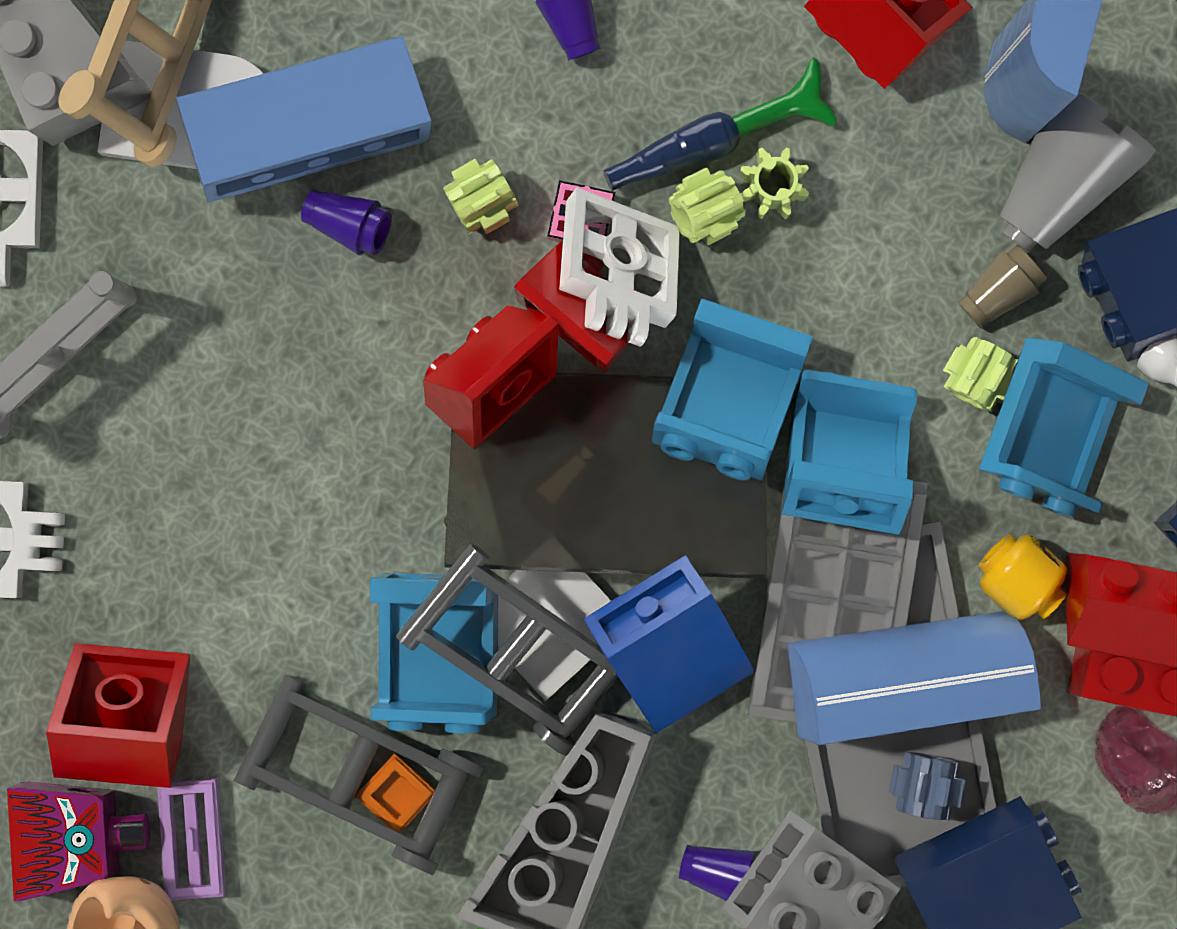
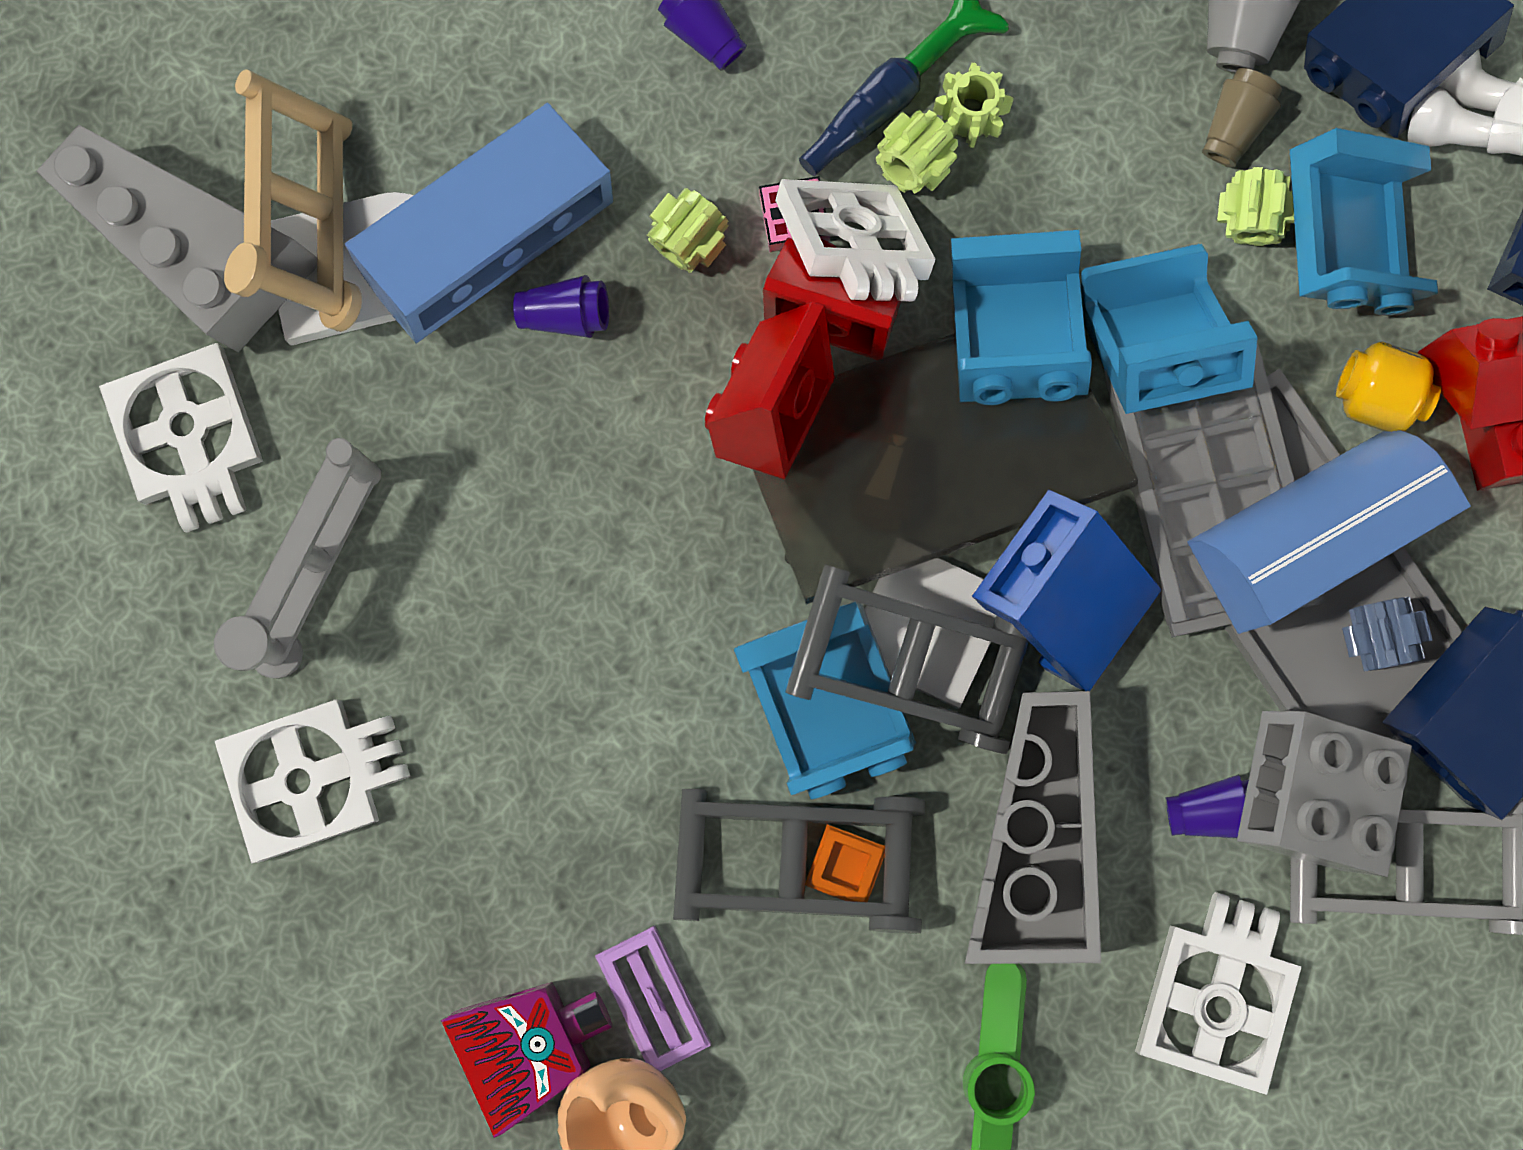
camera: 15 degrees left, 5 degrees down
(119, 716) = (528, 900): red slope -> none

